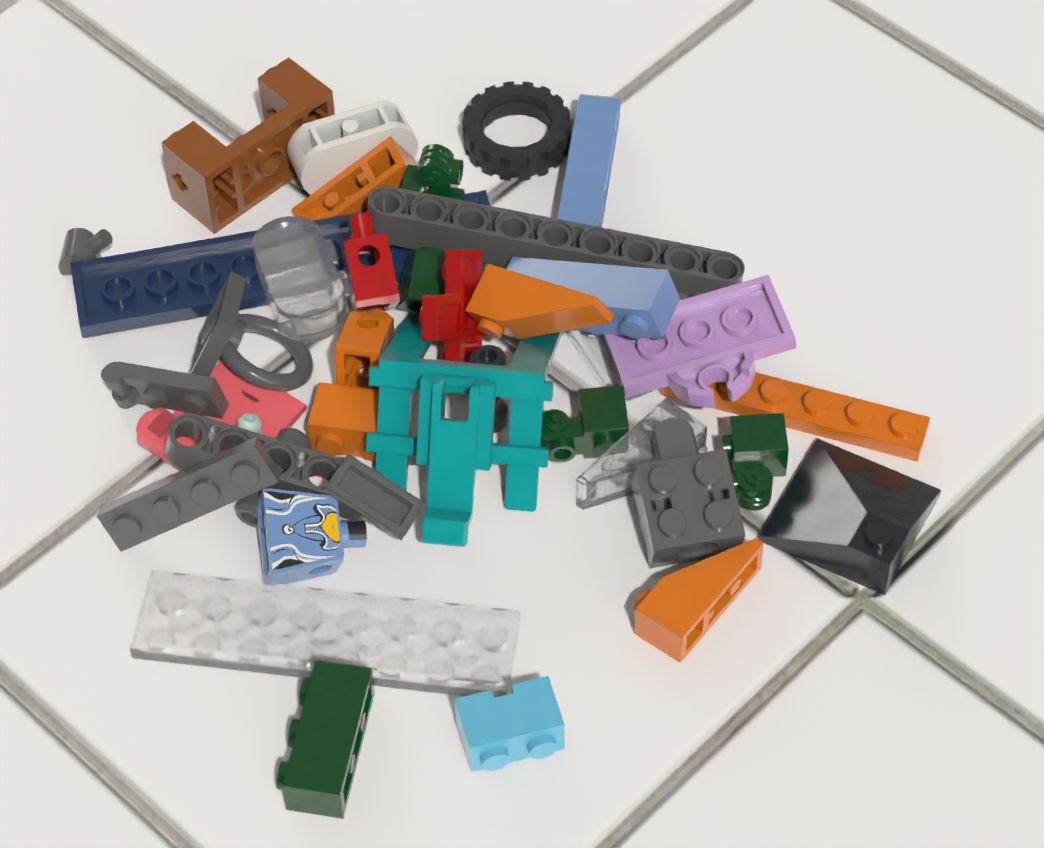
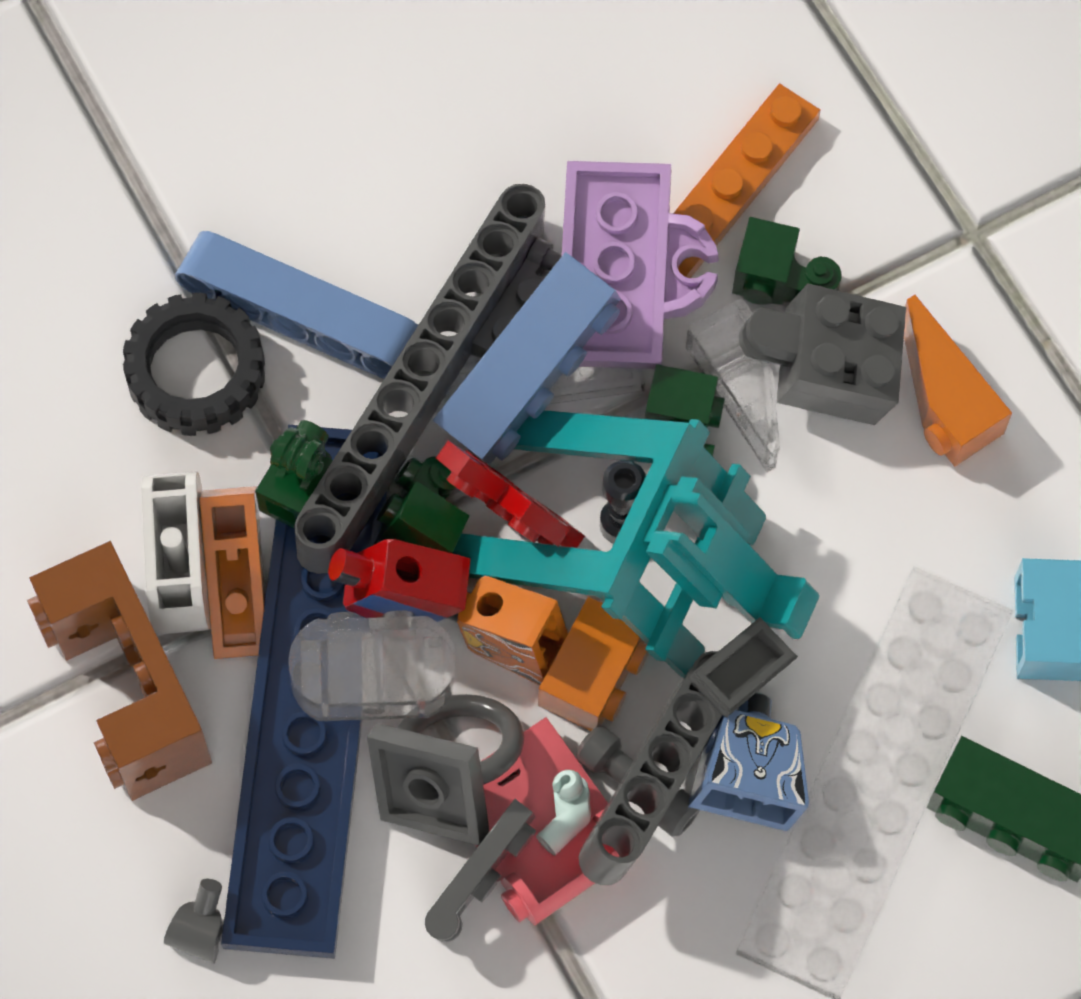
camera: 75 degrees left, 15 degrees up
(189, 494) = (674, 870): dark grey plate -> none
(531, 307) = (539, 422): orange slope -> none
(850, 516) = (878, 202): black slope -> none

